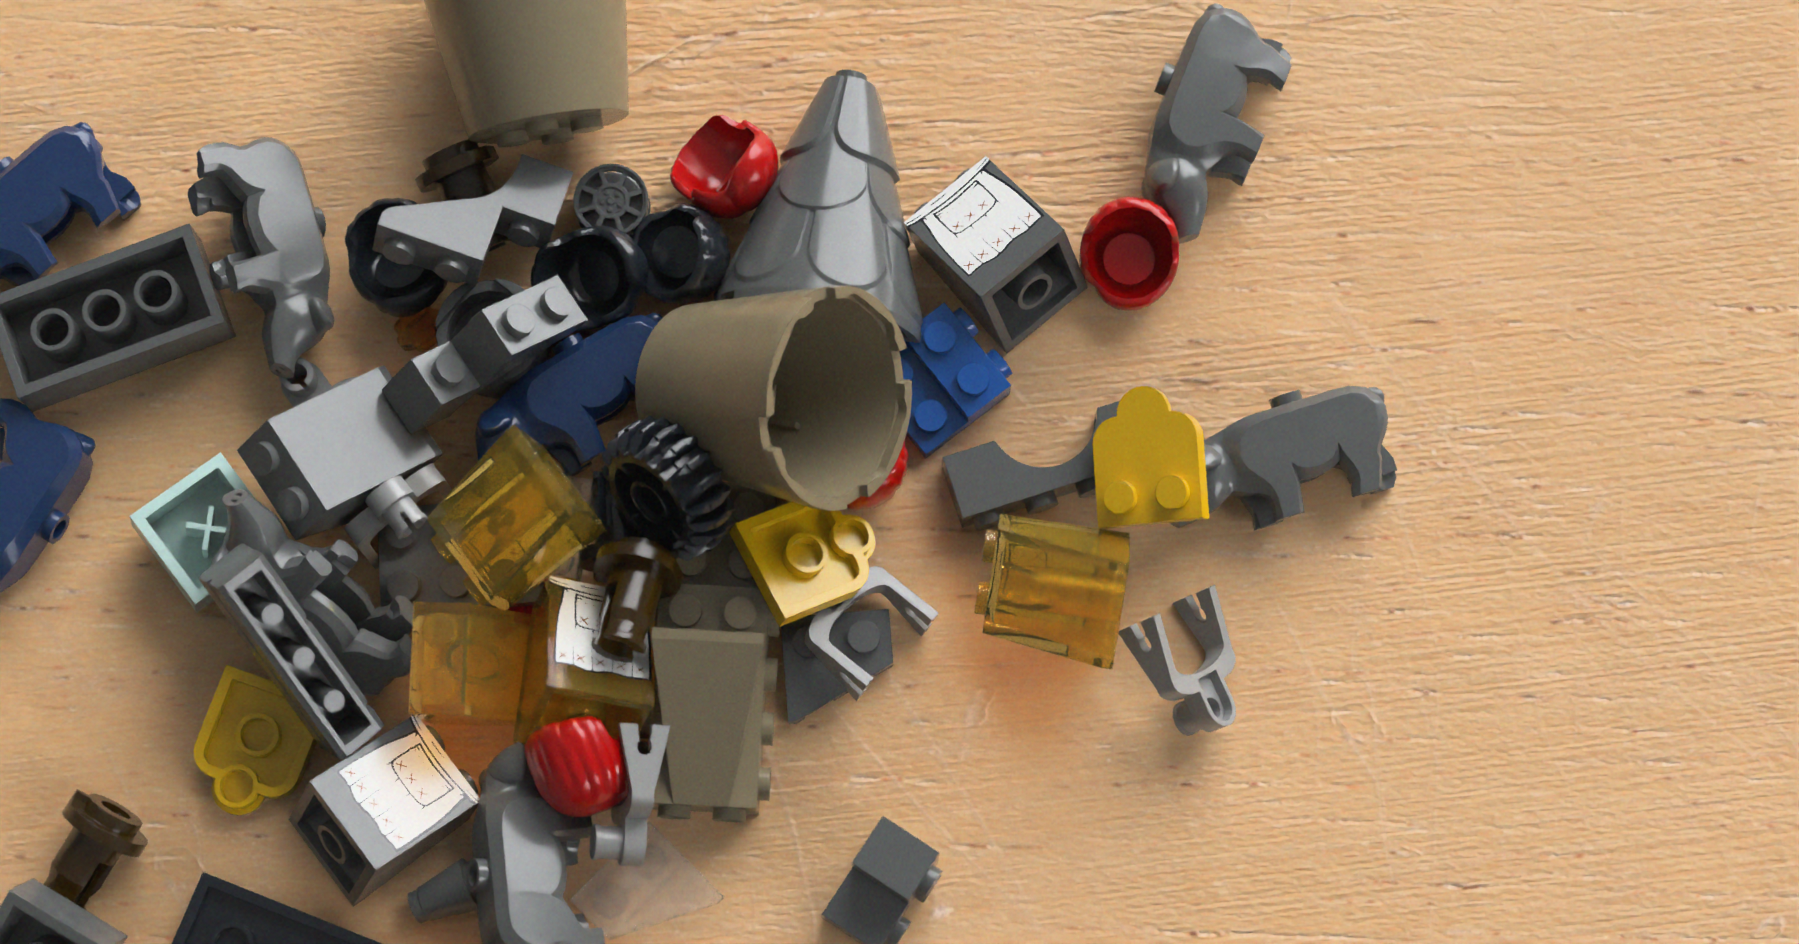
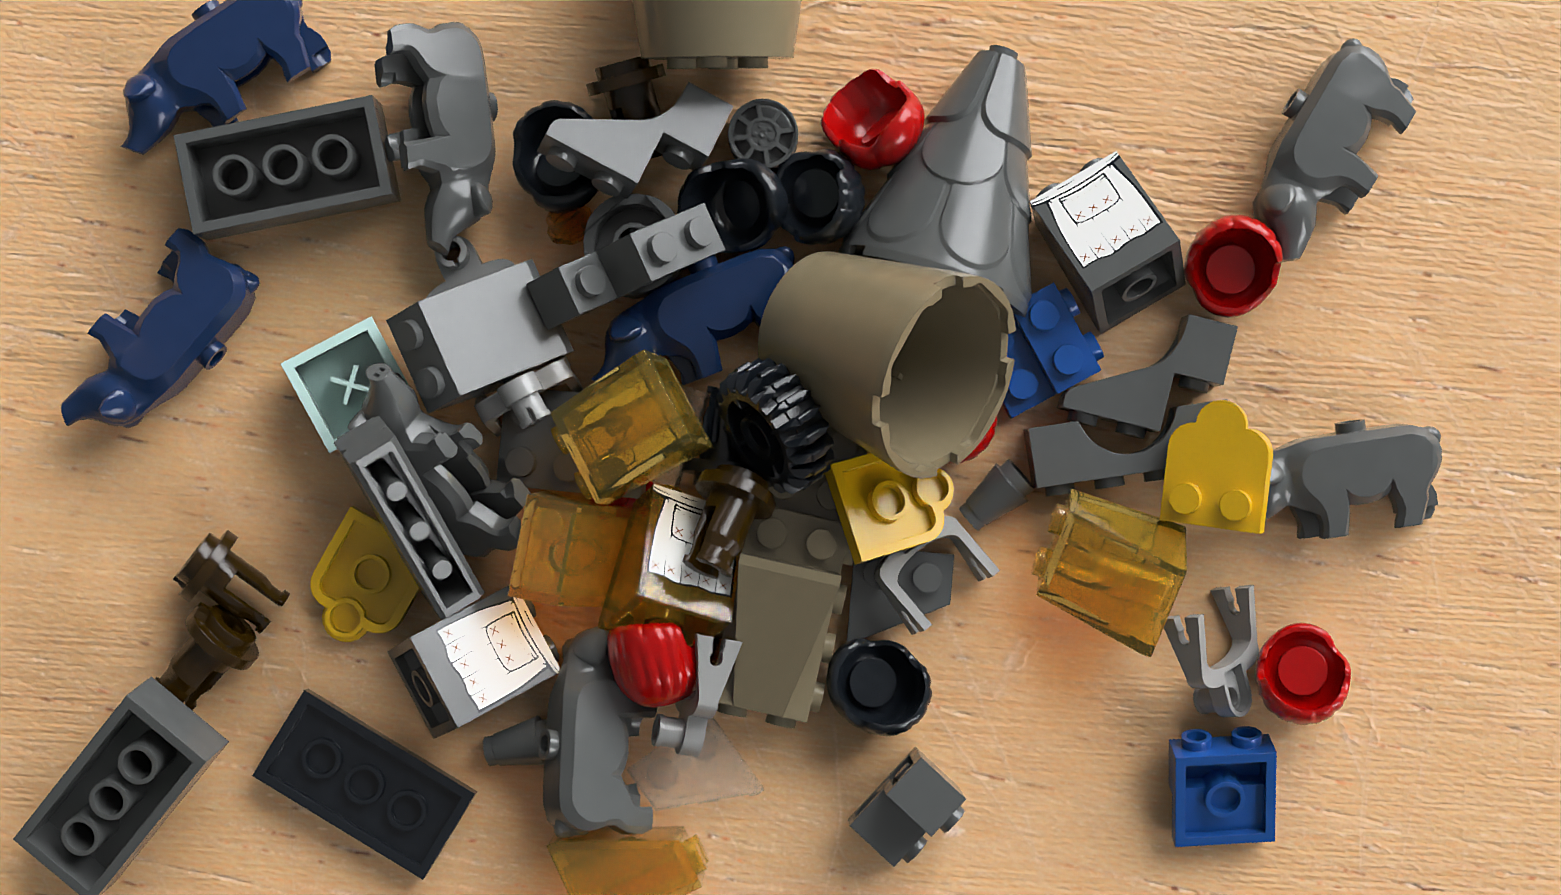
camera: 10 degrees right, 10 degrees up
(84, 755) = (212, 569): none -> dark brown piece
(827, 758) = (878, 686): none -> black piece
(923, 538) = (997, 495): none -> dark grey cone
(1055, 407) = (1140, 396): none -> dark grey arch
(1222, 809) = (1222, 787): none -> blue plate
(1283, 670) = (1302, 674): none -> red piece

